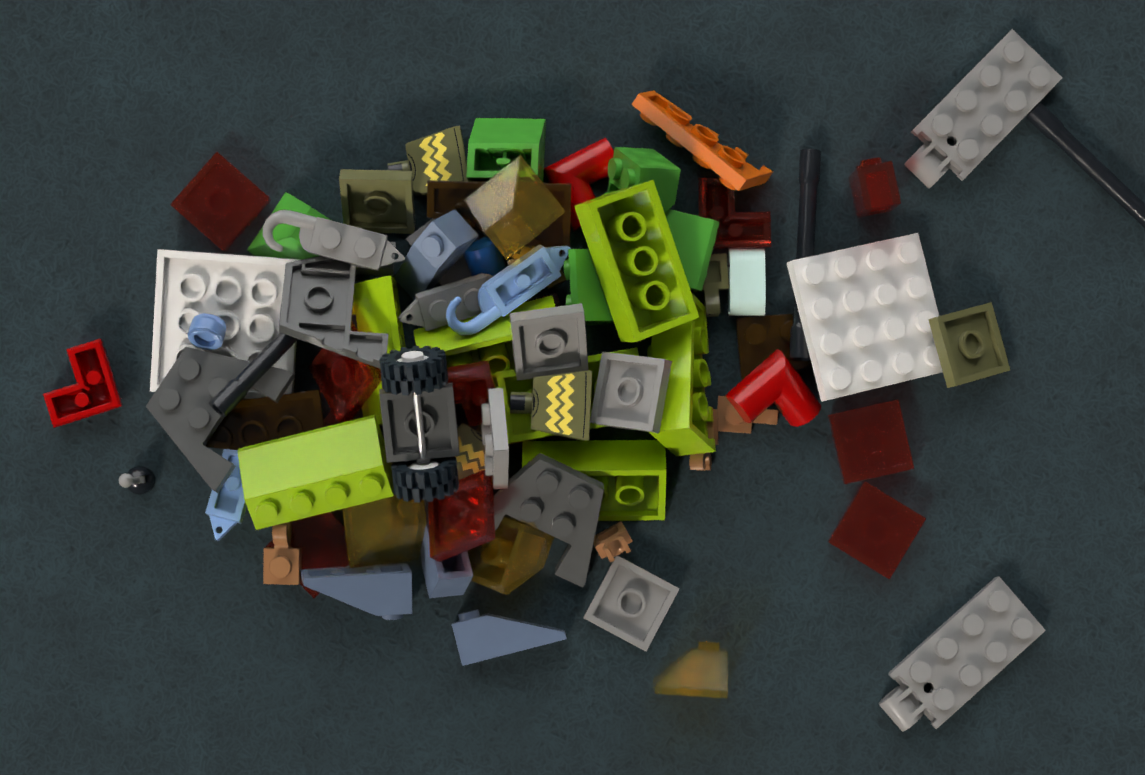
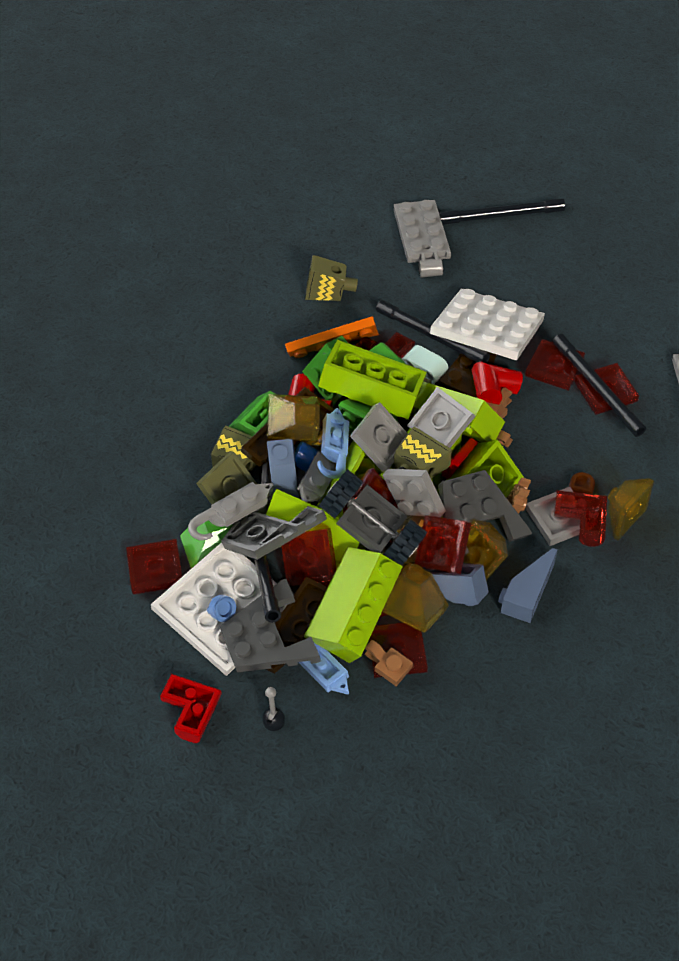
camera: 55 degrees left, 35 degrees down
(376, 589) = (446, 630): sand blue slope -> none
(615, 438) = (459, 457): none -> red tile
(647, 642) = (590, 510): none -> clear red brick
(702, 596) = (582, 483): none -> reddish brown tile
(782, 50) = (328, 280): none -> olive torso
(874, 187) = (423, 283): clear red brick -> none
(893, 452) = (629, 419): none -> black piece
(969, 345) = (538, 296): olive plate -> none

